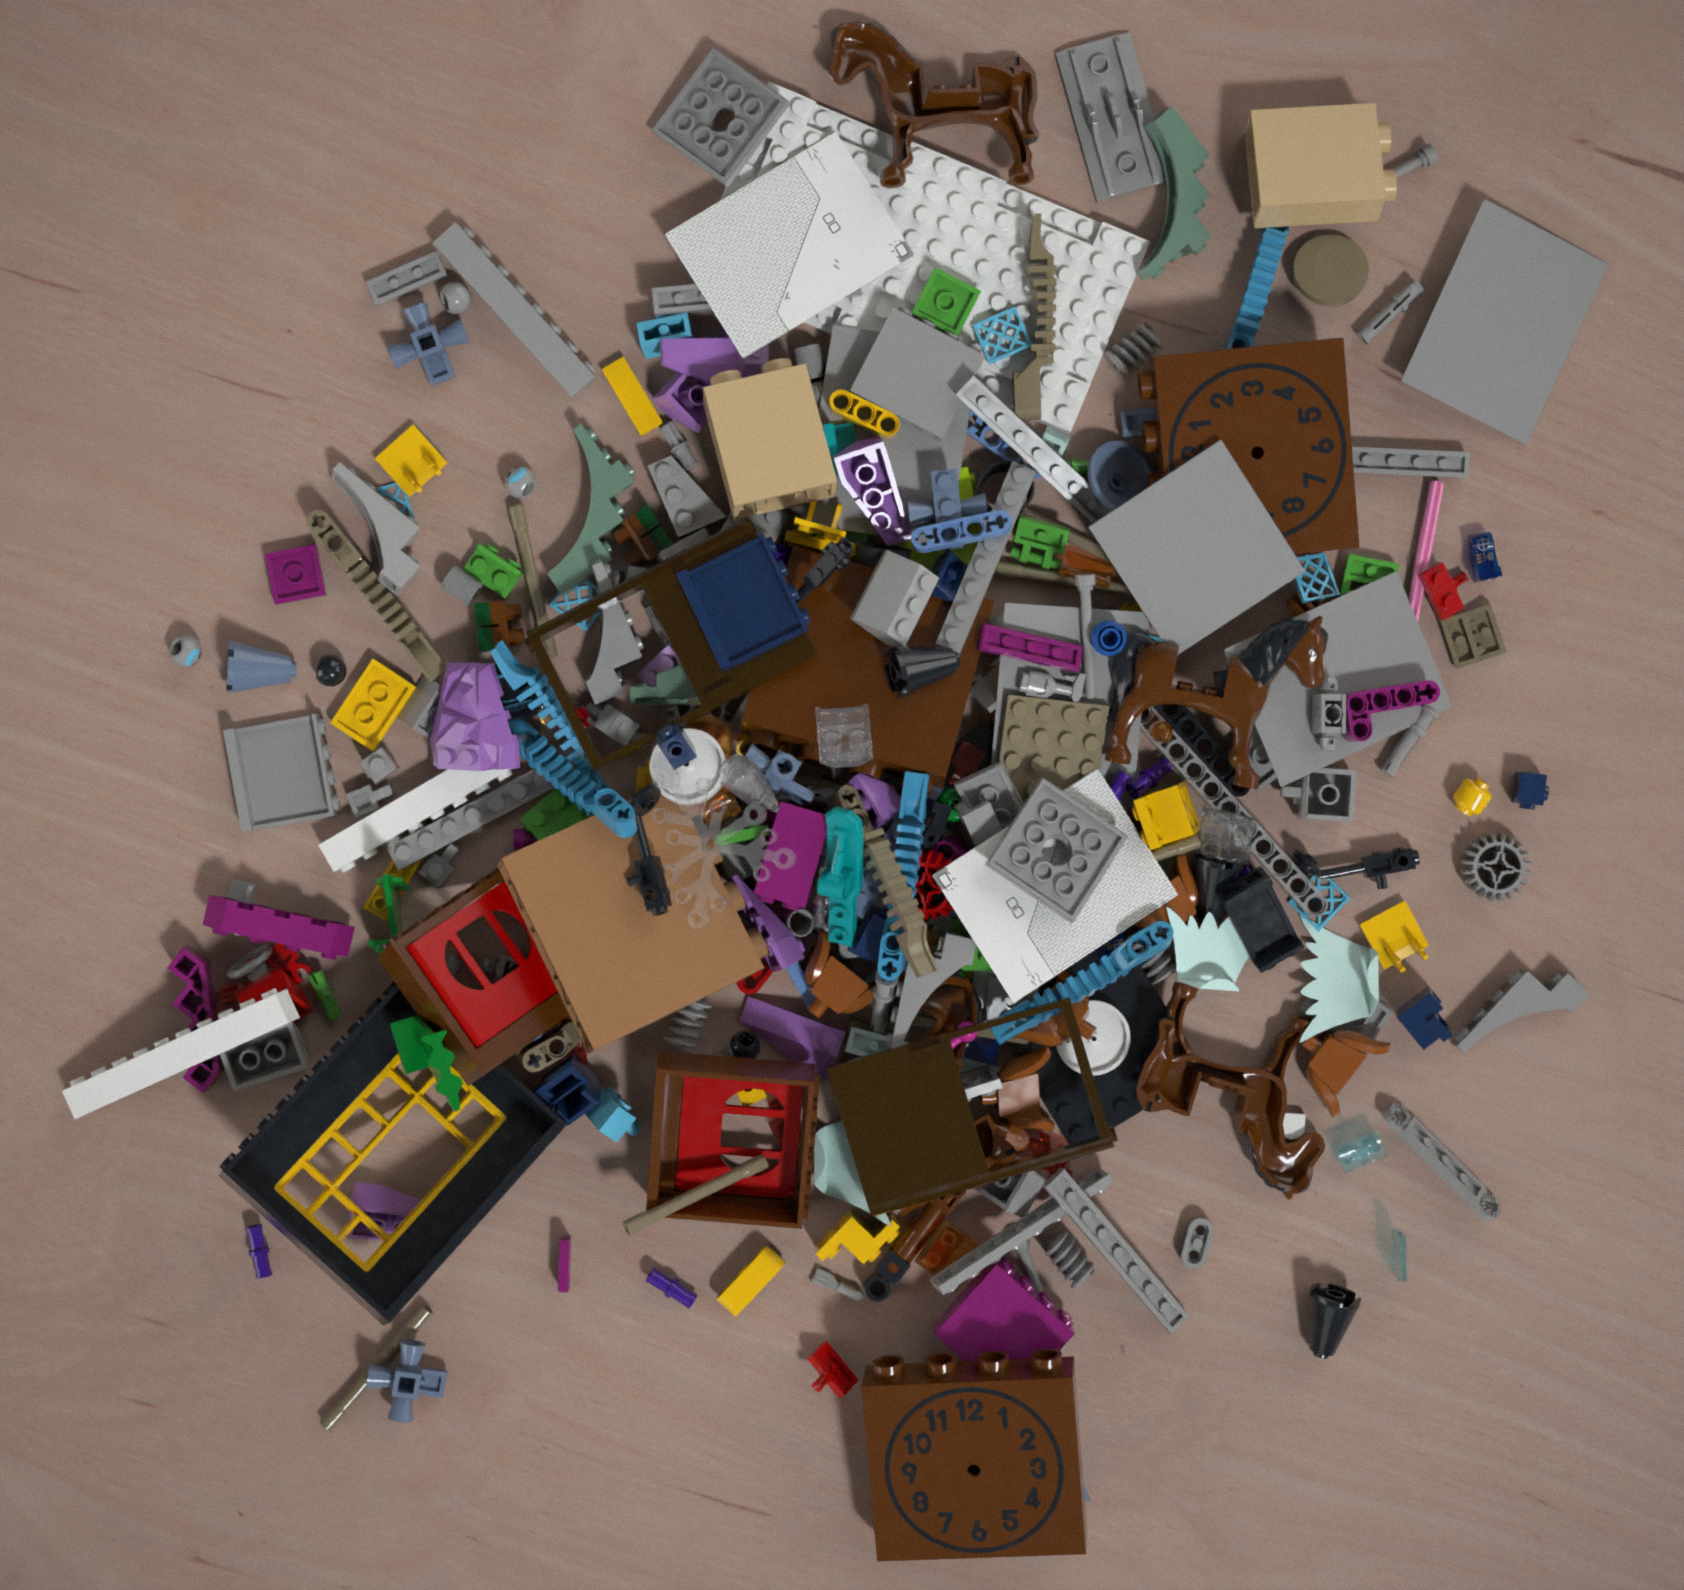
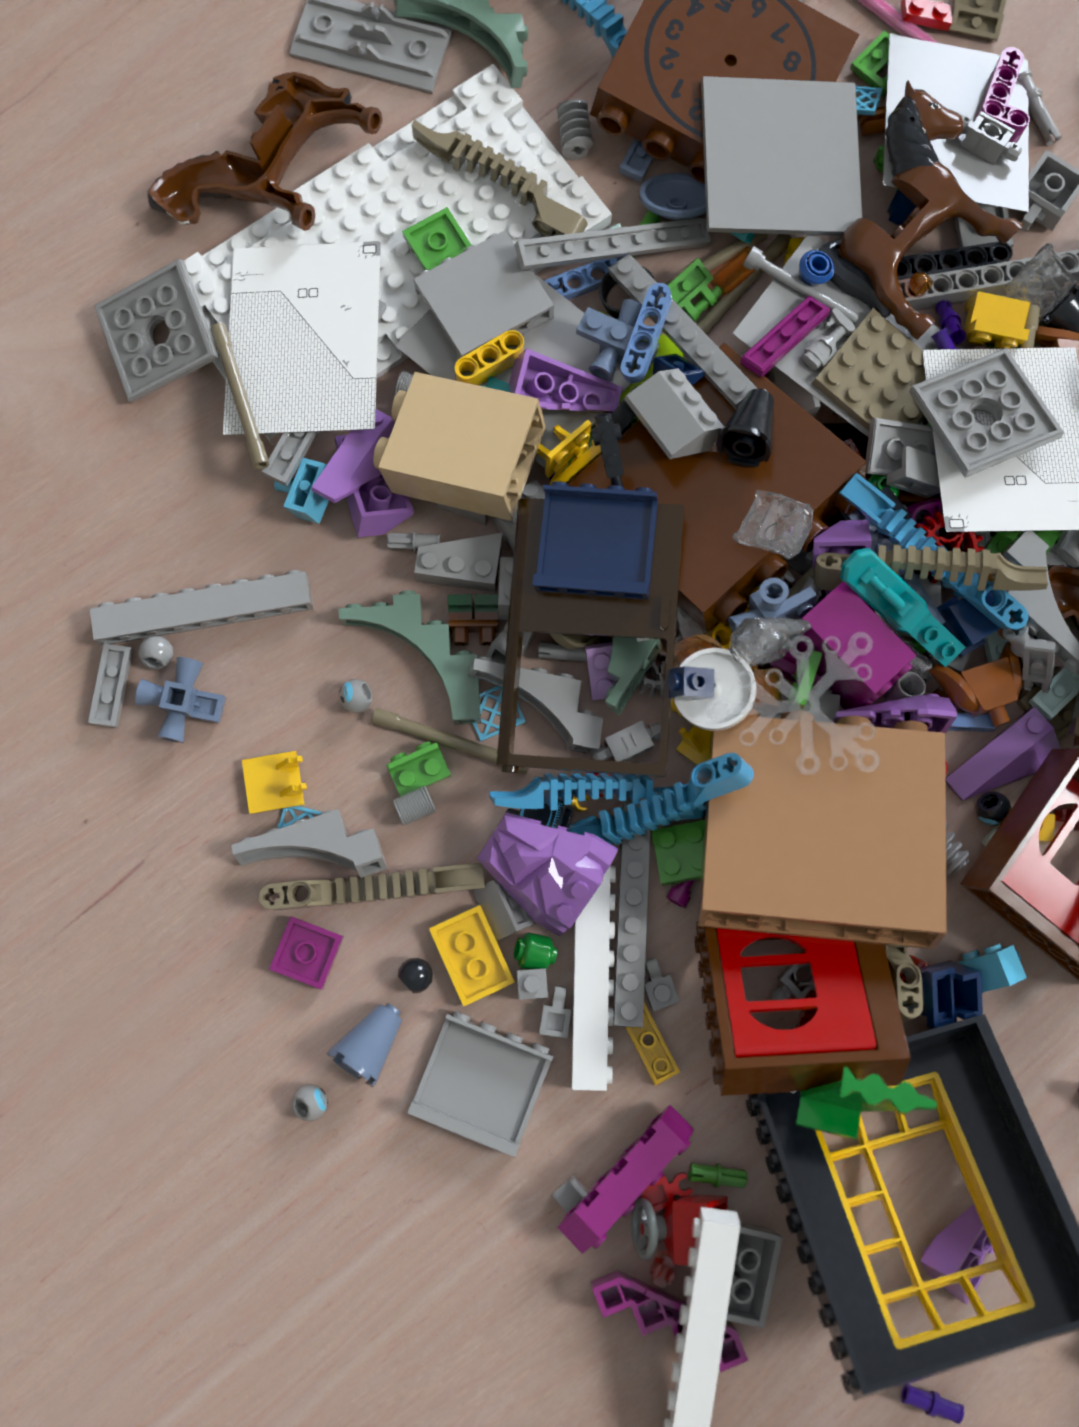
camera: 60 degrees left, 10 degrees down
(391, 887) = (655, 1039): green piece -> none
(406, 752) = (534, 951): none -> green head
(499, 614) = (459, 791): reddish brown hips -> none
(632, 396) = (344, 555): yellow tile -> none
(649, 869) = (794, 776): black piece -> none
(669, 268) = (254, 443): none -> dark tan piece
(872, 1012) = (1038, 663): none -> light grey hinge
(1021, 327) = (498, 198): medium azure window -> none

